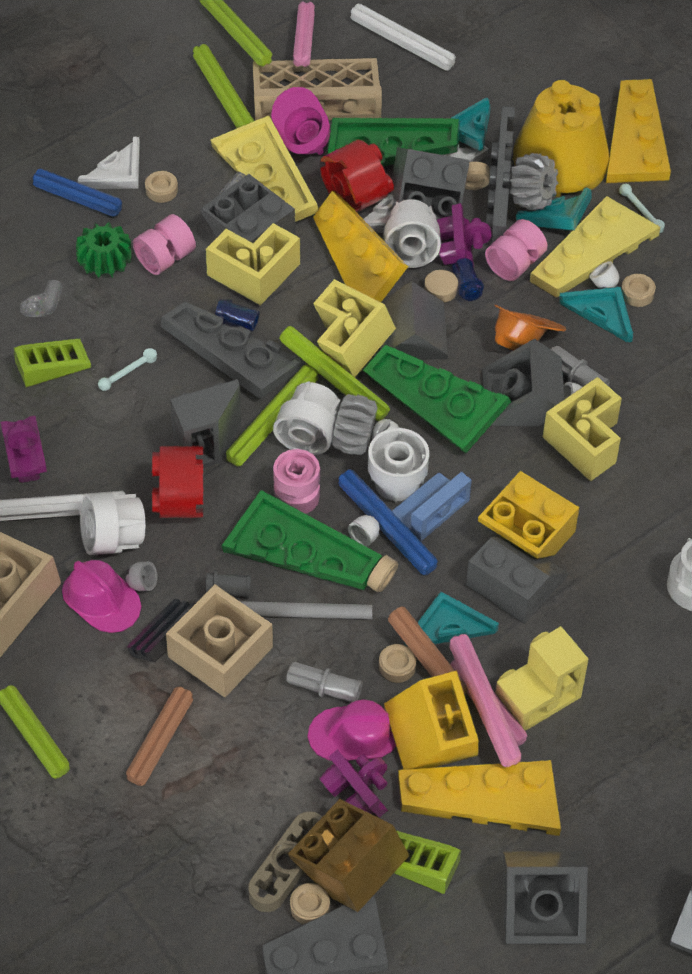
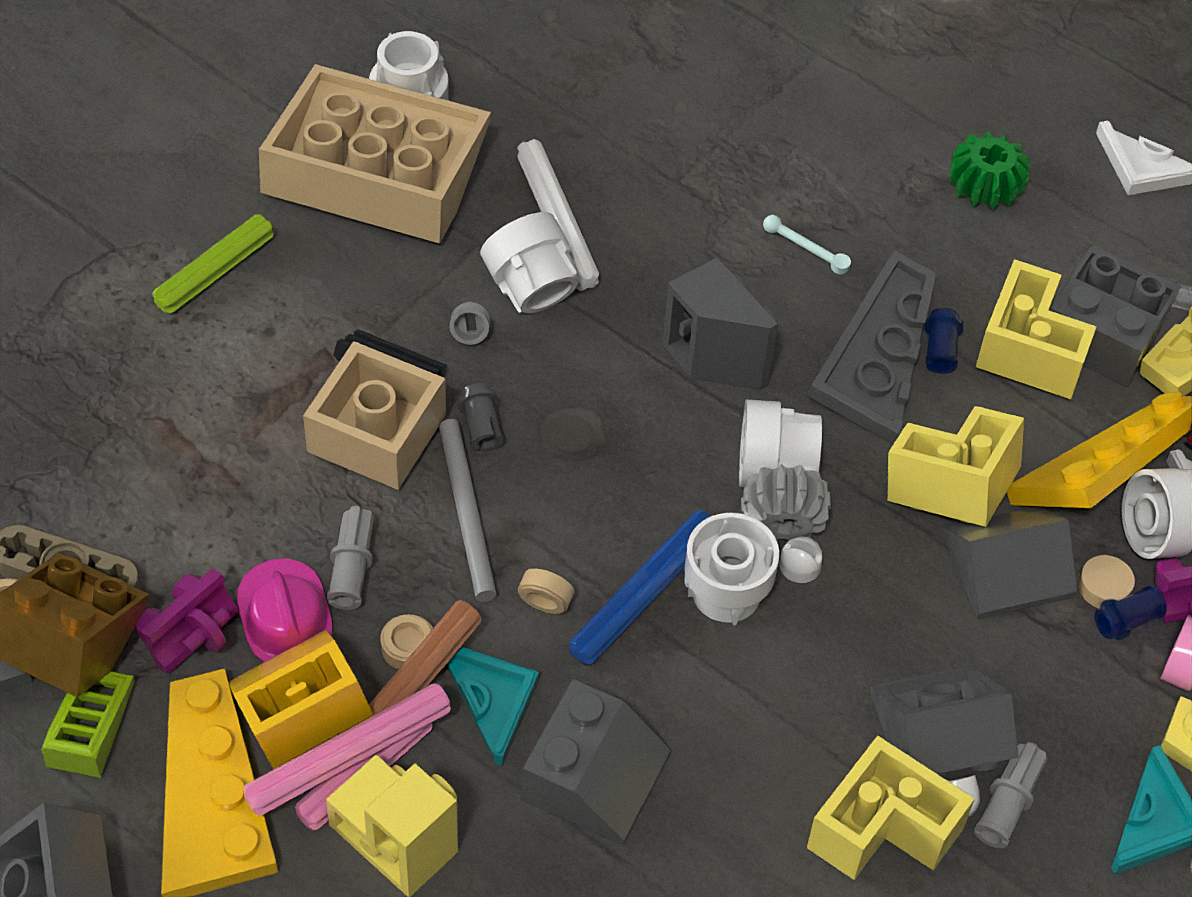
camera: 75 degrees right, 0 degrees up
(24, 449) = (627, 153): magenta hips -> none
(36, 353) = (777, 131): lime slope -> none
(43, 303) = (879, 134): clear arm -> none
(77, 192) = (1081, 128): blue axle -> none
(101, 596) = (431, 288): dark pink piece -> none
(159, 736) = (232, 392): nougat axle -> none
(161, 186) = (1138, 216): tan tile -> none
(165, 243) = (1037, 239): bright pink wheel -> none
(179, 482) = (614, 317): red brick -> none
(264, 422) = (835, 431): lime axle -> none
(294, 541) = (573, 482): green wing -> none
(297, 479) = (664, 454): bright pink wheel -> none
(329, 368) = (873, 472): lime axle -> none
(364, 530) = (621, 560): white hinge -> none
(433, 503) = (691, 638): medium blue panel -> none
(445, 402) = (880, 610): green wing -> none
(517, 328) = (1062, 699): orange piece -> none
(531, 516) = (685, 759): yellow slope -> none

